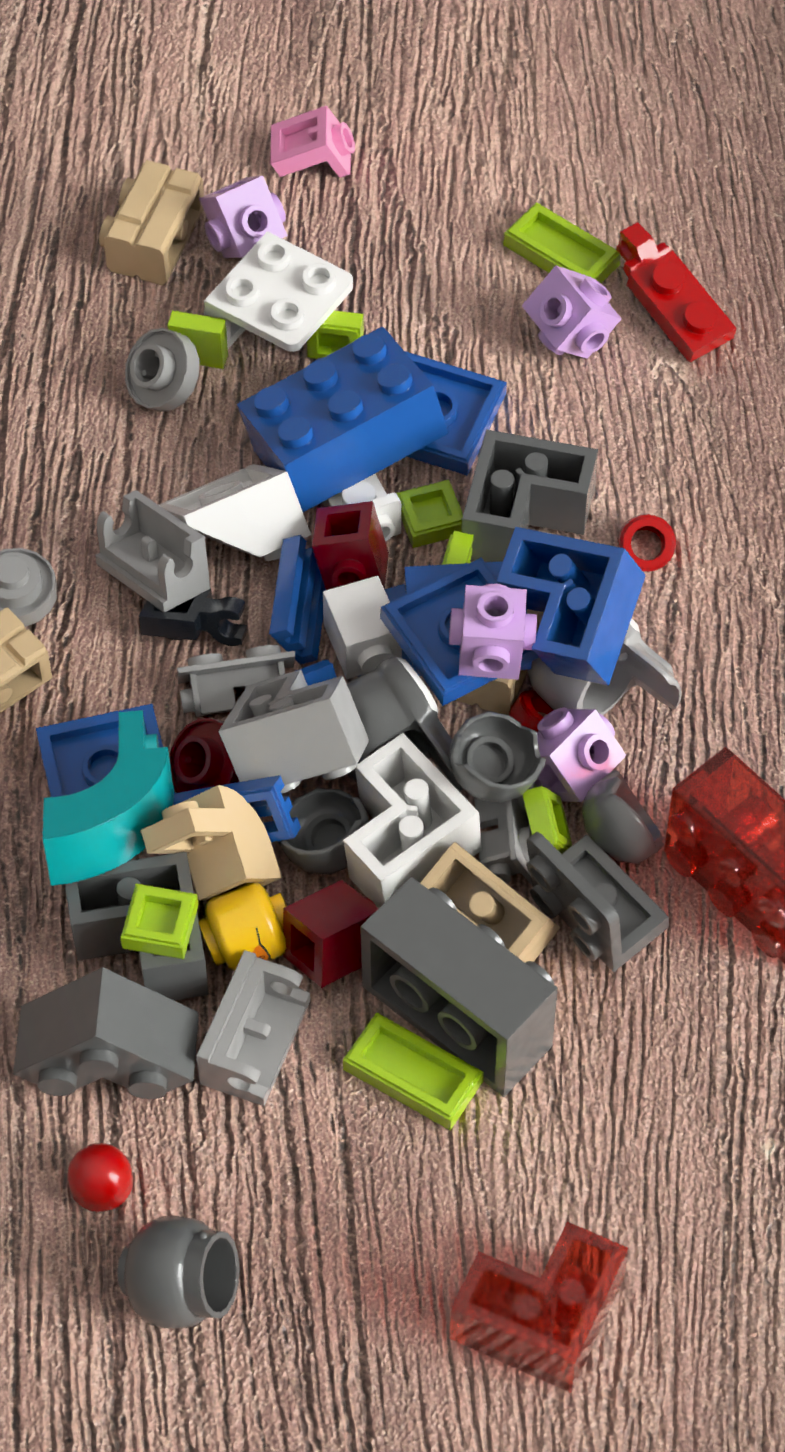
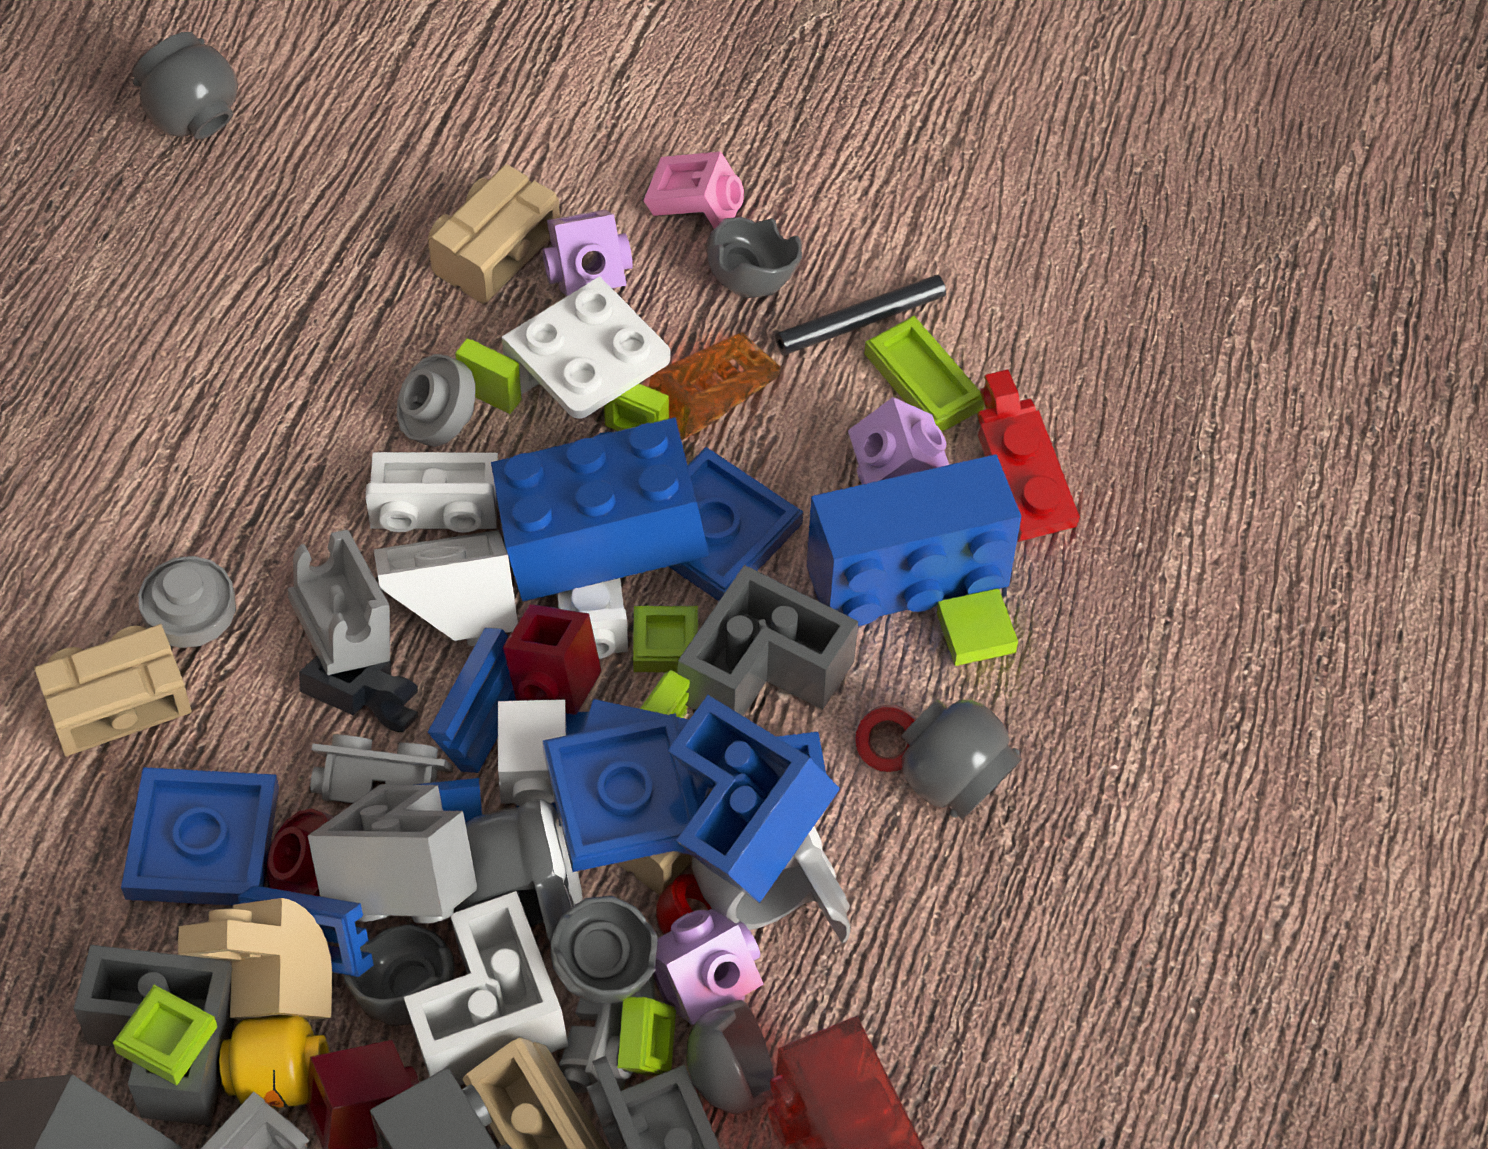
camera: 15 degrees right, 0 degrees up
(104, 823) = (138, 906): teal arch -> none
(189, 444) = (432, 491): none -> white bracket
(383, 187) = (752, 256): none -> dark grey hair
(389, 301) = (699, 409): none -> clear orange slope
(489, 213) = (860, 314): none -> black piece
(492, 631) = (642, 806): lavender brick -> none
(615, 374) = (913, 539): none -> blue brick
(684, 437) = (977, 627): none -> lime tile
(714, 536) = (957, 755): none -> dark grey piece

